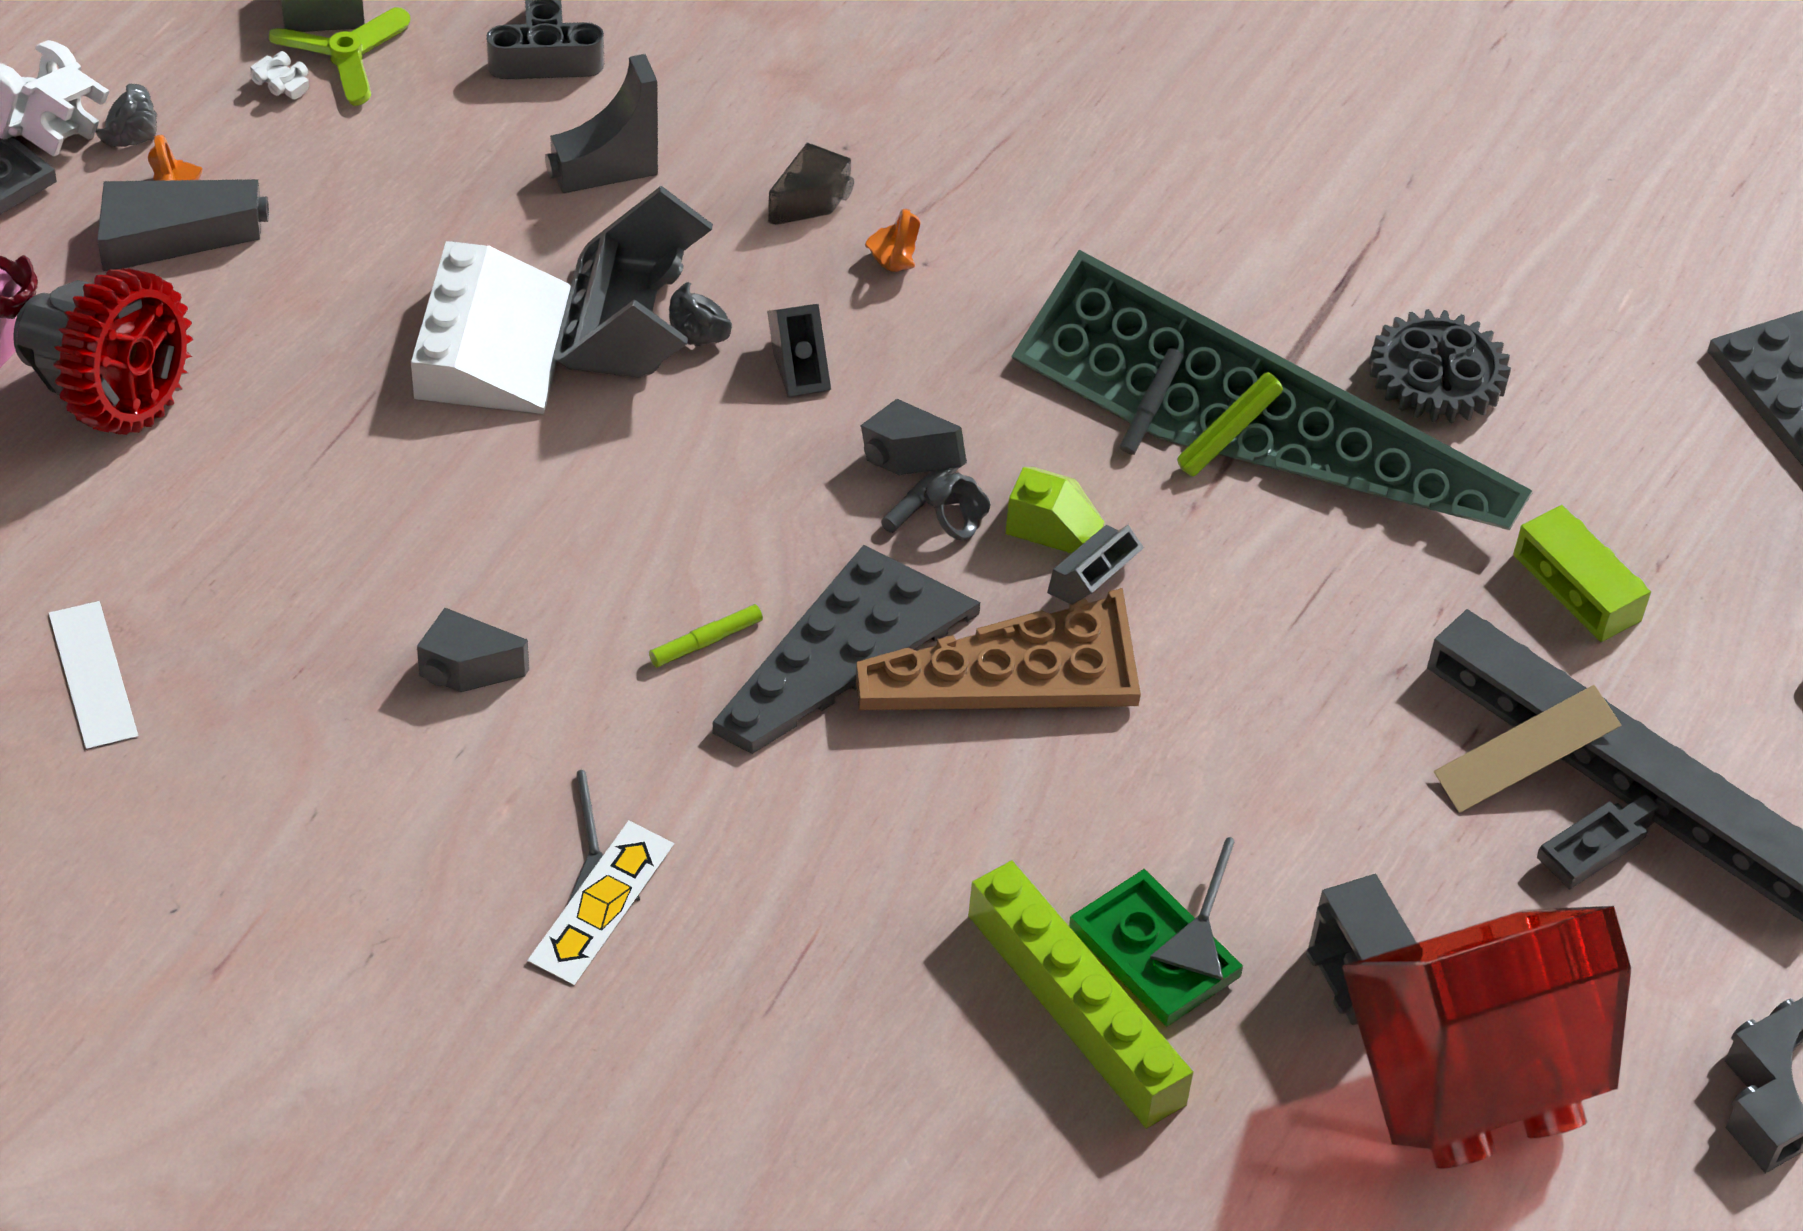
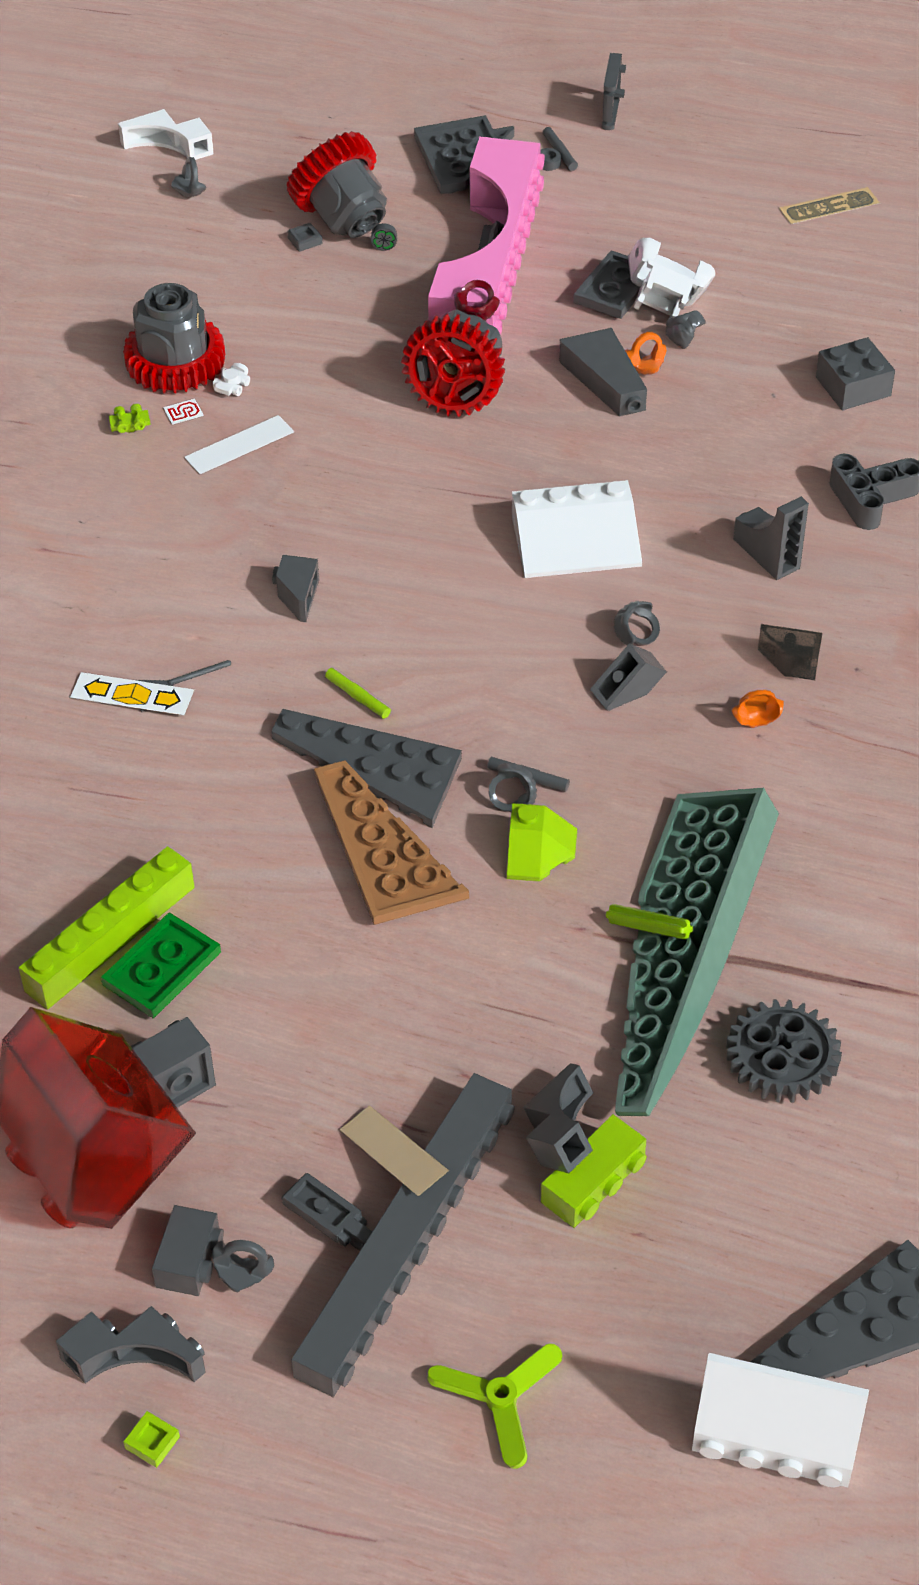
camera: 80 degrees right, 0 degrees up
(280, 77) = (764, 382): white piece -> none
(347, 48) = (812, 405): lime piece -> none
(615, 285) = (627, 580): dark grey windscreen -> none
(912, 440) = (561, 749): dark grey slope -> none
(1093, 563) = (482, 867): dark grey piece -> none
(1151, 401) = (656, 874): dark grey piece -> none
(1194, 945) = (158, 980): dark grey piece -> none
(1560, 575) = (552, 1112): none -> dark grey arch
(1657, 1000) = (187, 1250): none -> dark grey brick
(1667, 944) = (240, 1272): none -> dark grey piece

